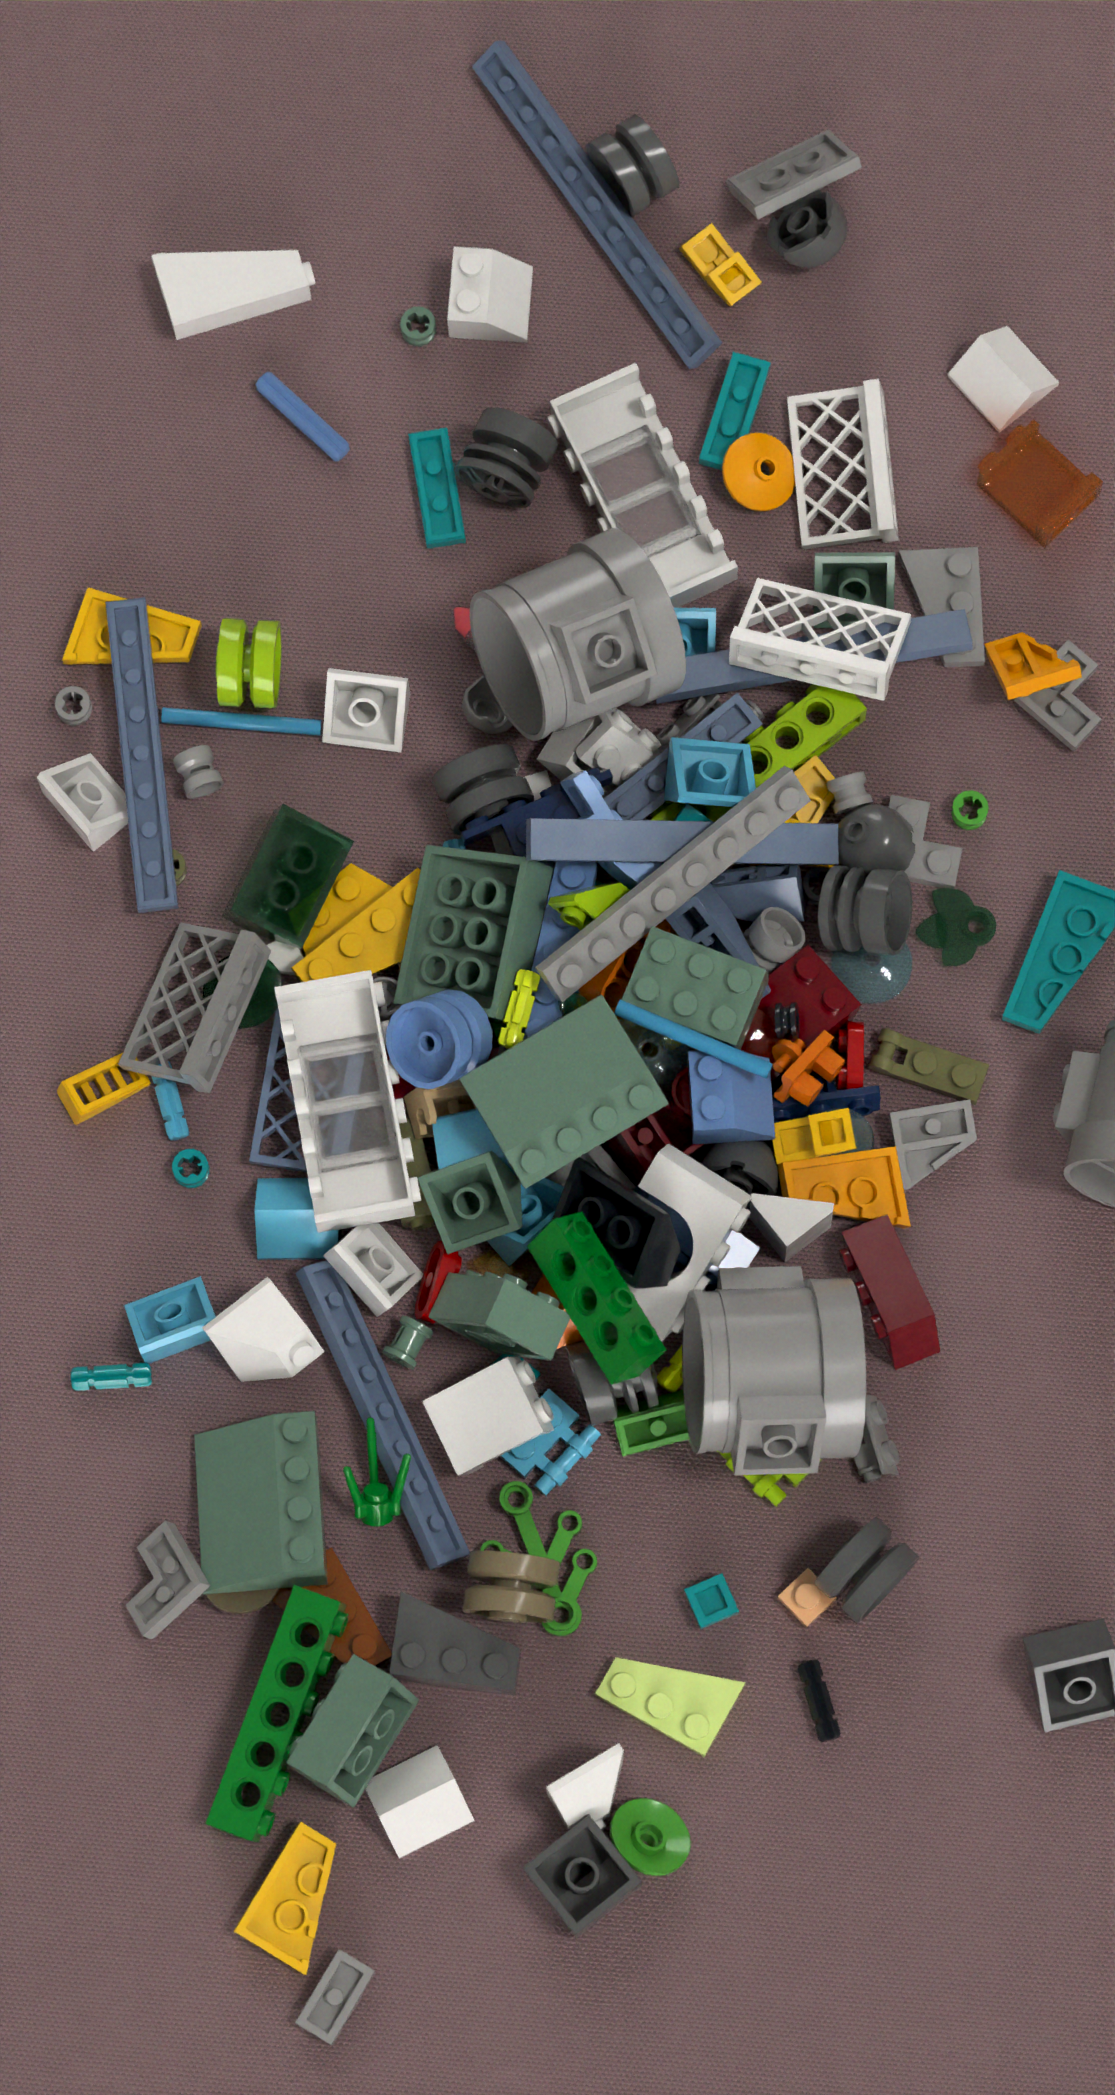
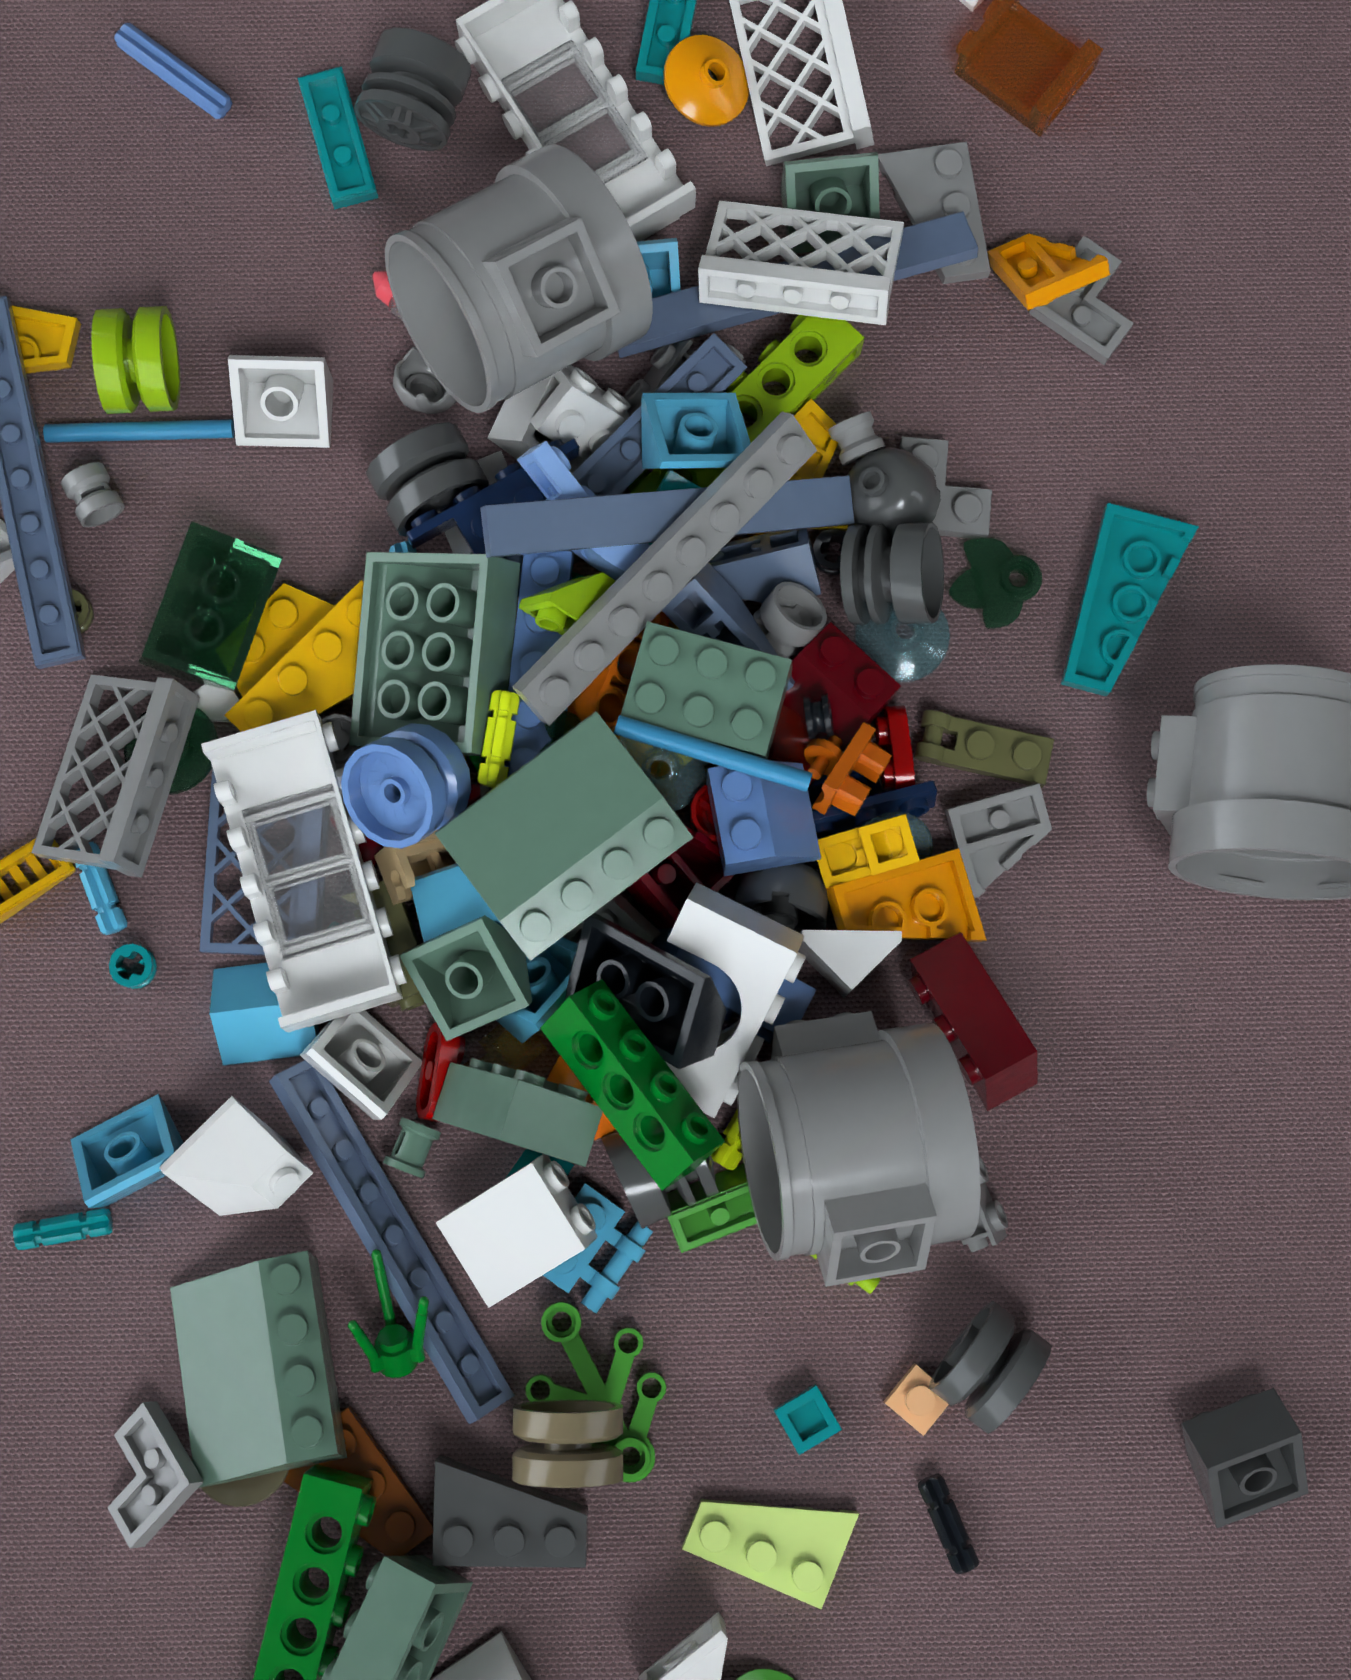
camera: 15 degrees left, 5 degrees up
(958, 804) = (1000, 430): bright green bush -> none

